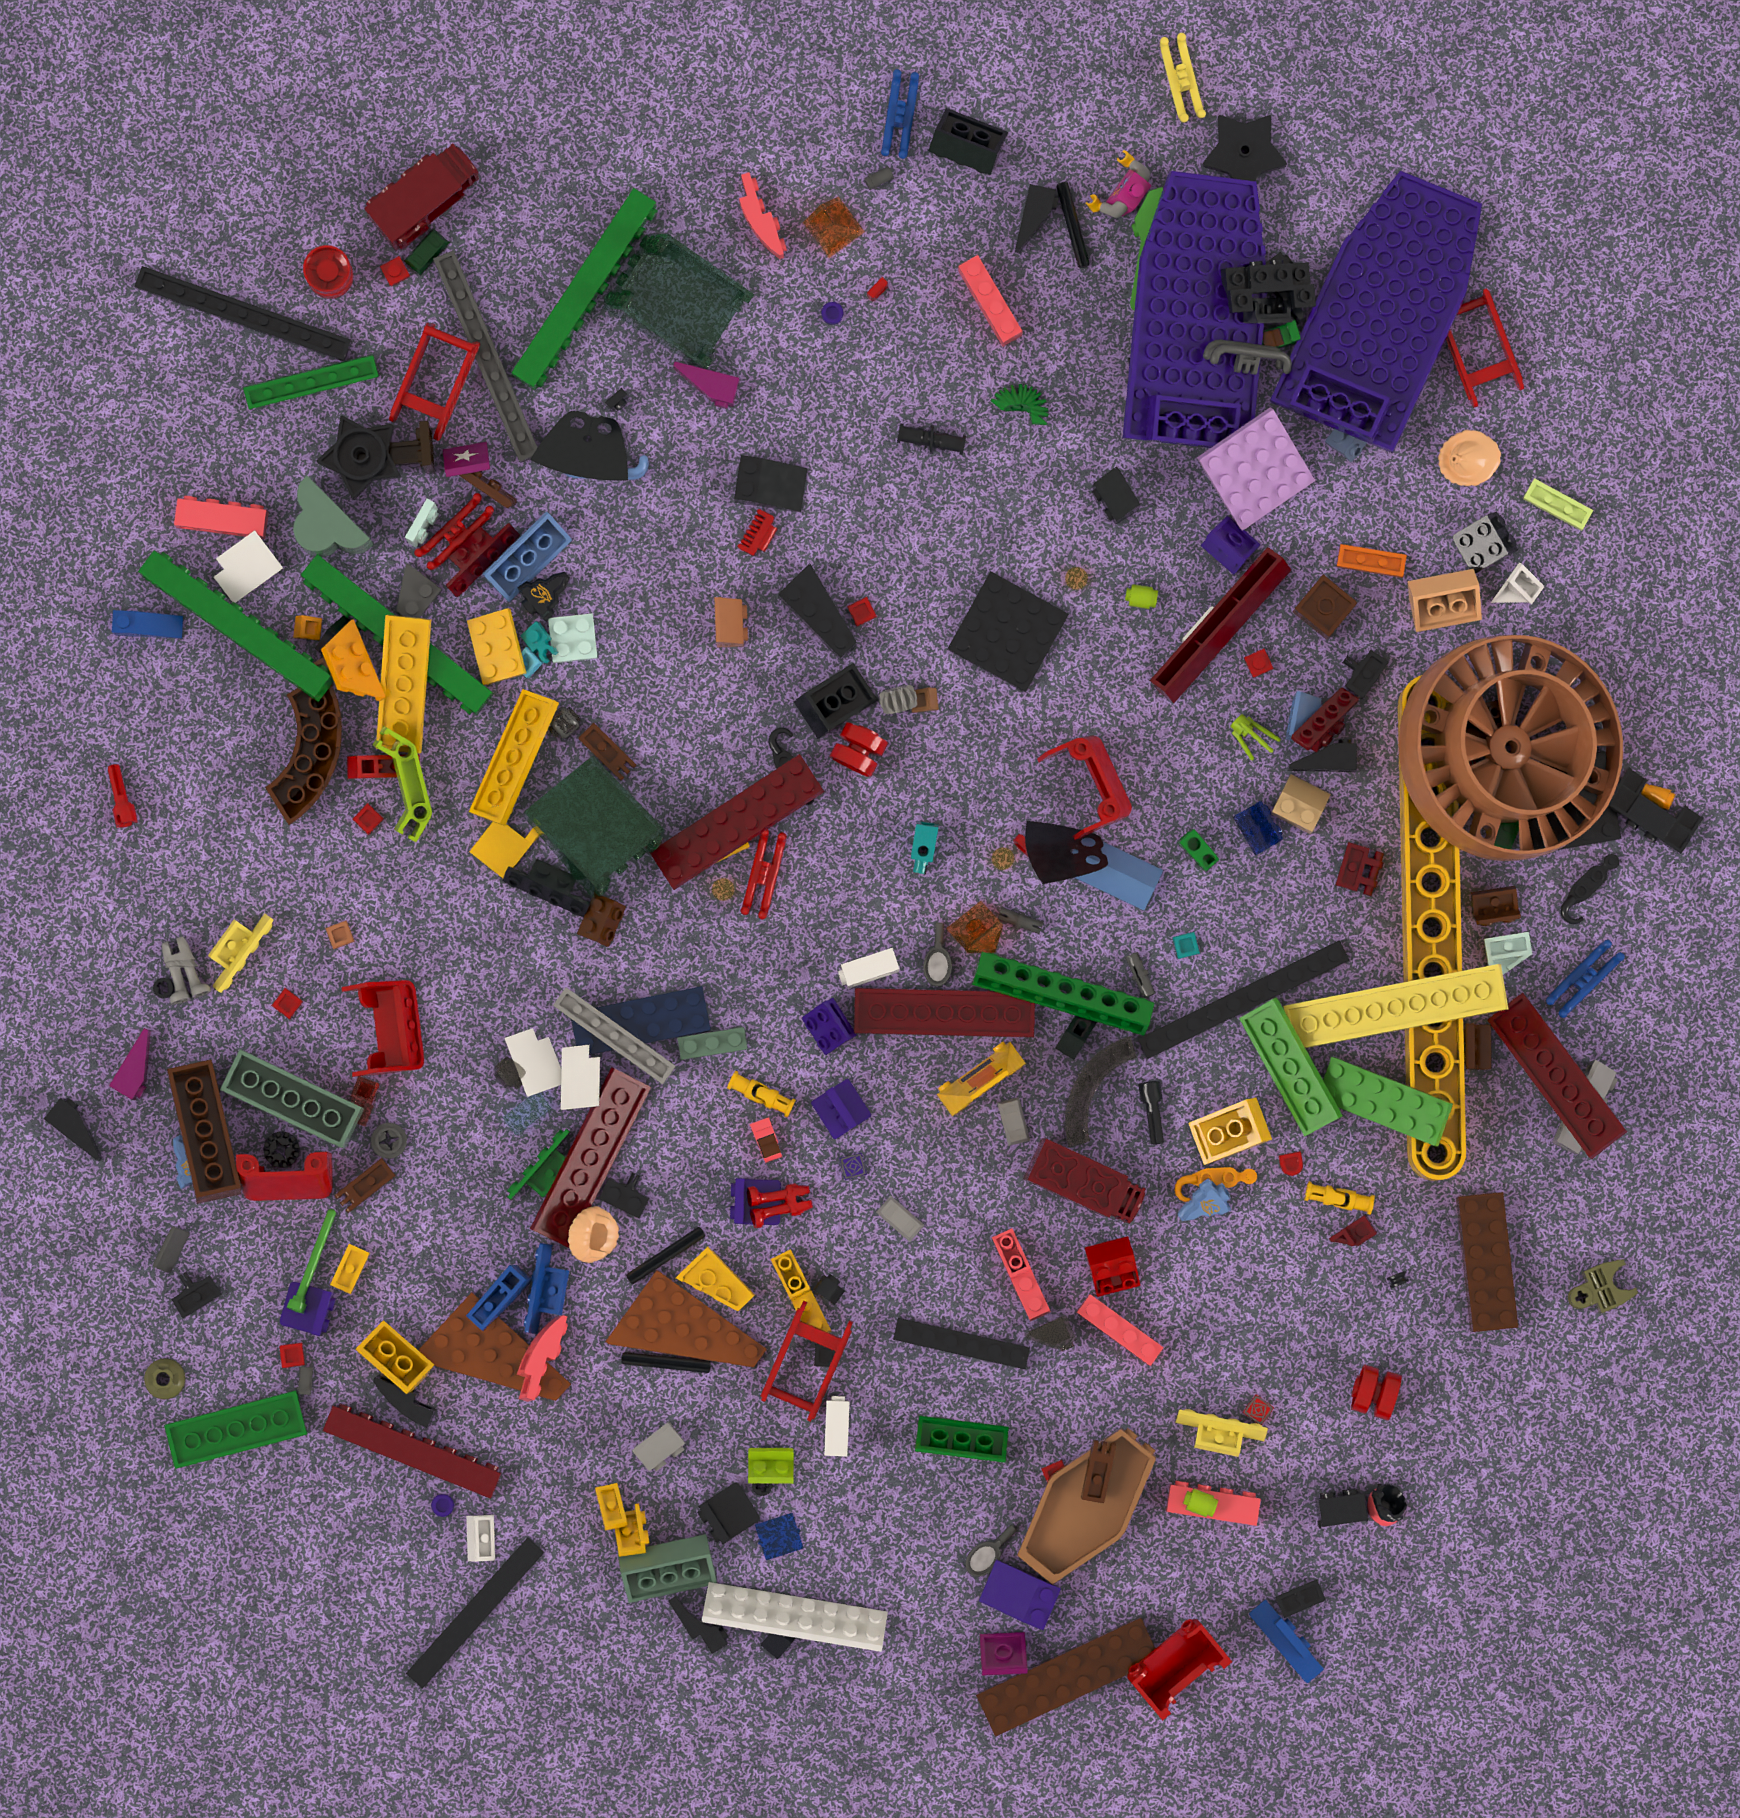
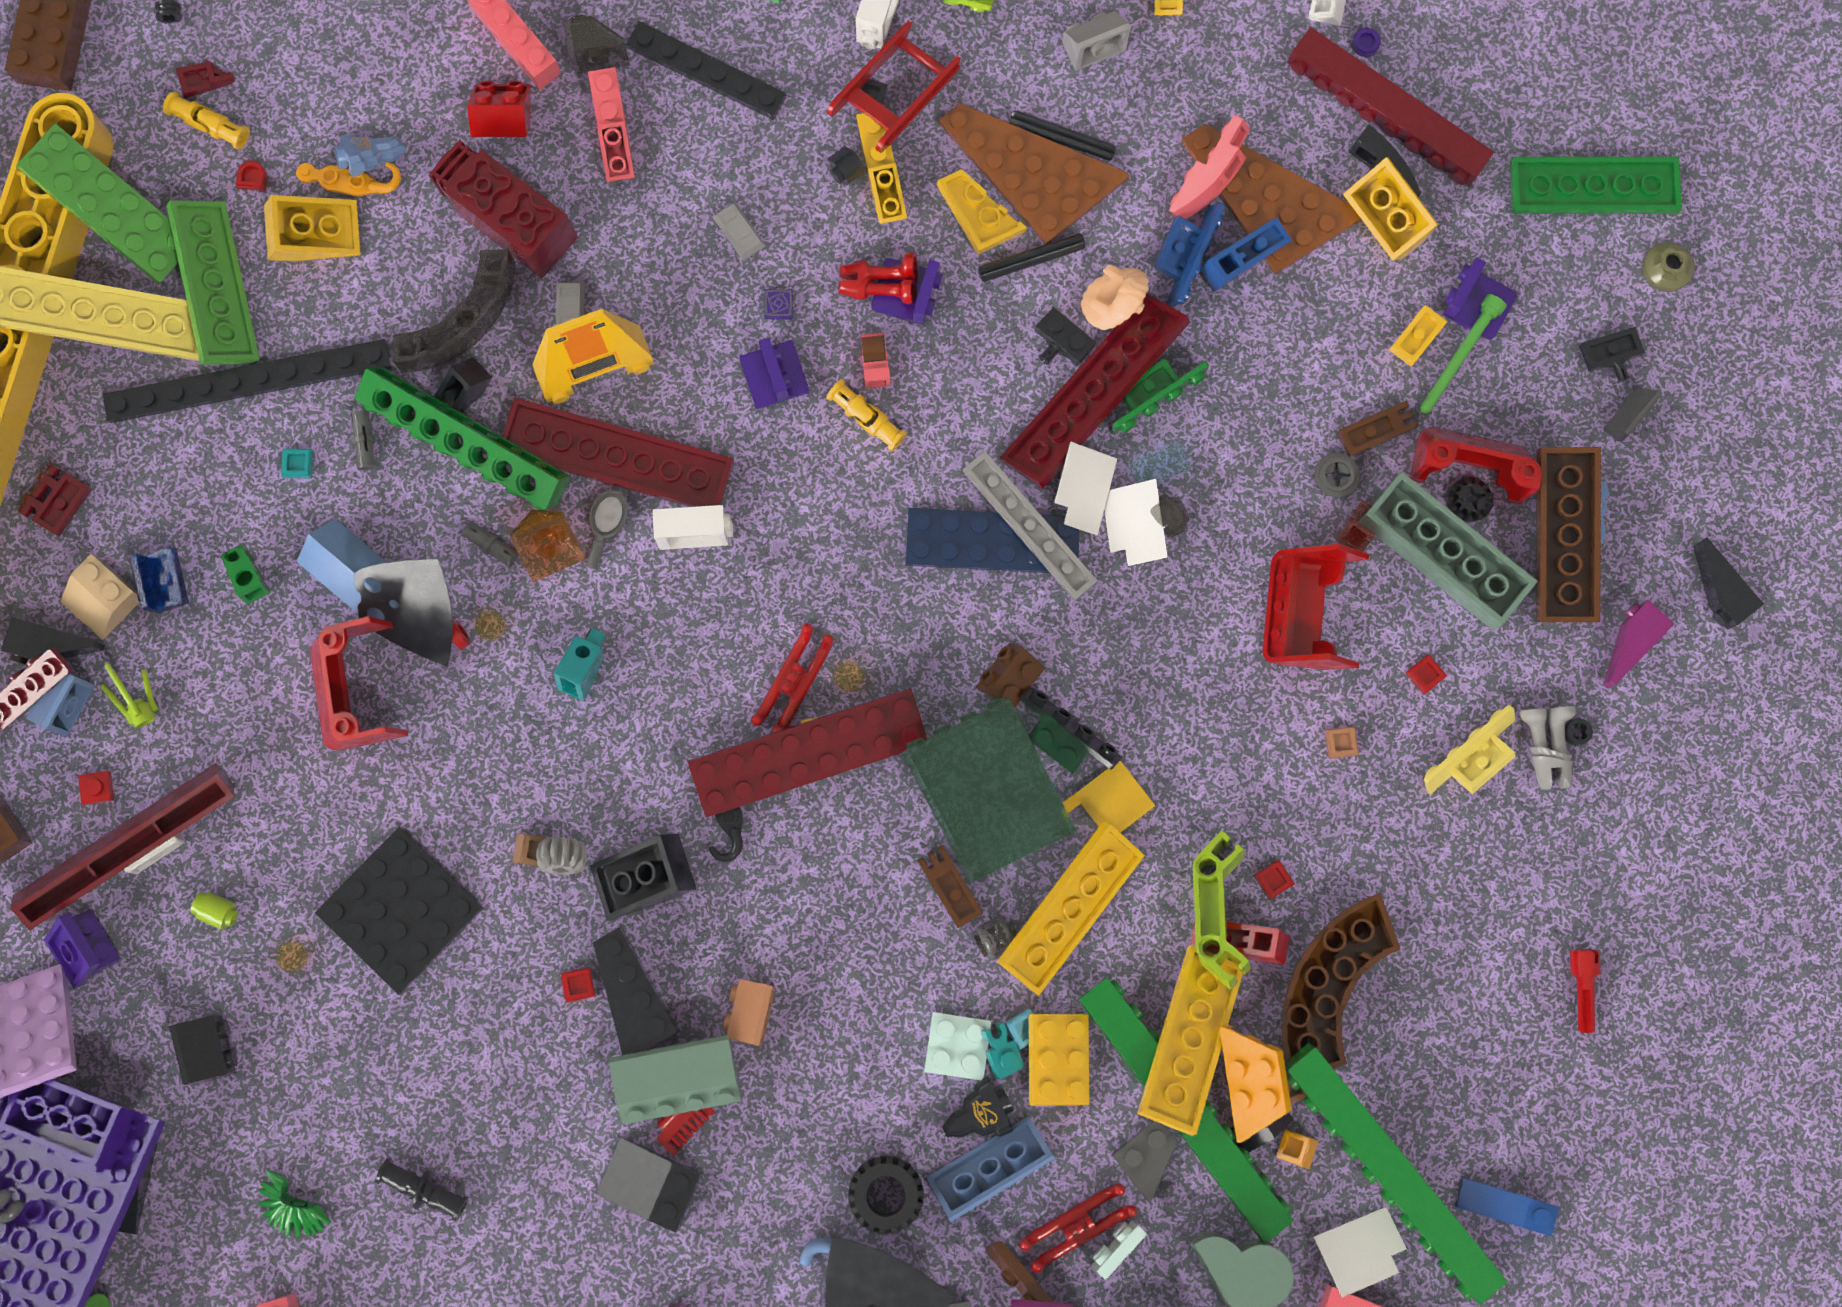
camera: 170 degrees left, 5 degrees down
(292, 1355) = (1509, 254): red tile -> none
(305, 1381) = (1502, 213): dark grey pin -> none
(477, 555) = (1054, 1188): dark red bracket -> none
(589, 502) = (908, 1210): none -> black tyre
(712, 1043) = (910, 492): sand green plate -> none
(770, 560) = (675, 1079): none -> sand green slope
(828, 1026) = (761, 474): dark purple bracket -> none
(861, 744) = (623, 810): red wheel -> none
(1151, 1095) = (393, 293): black piece -> none

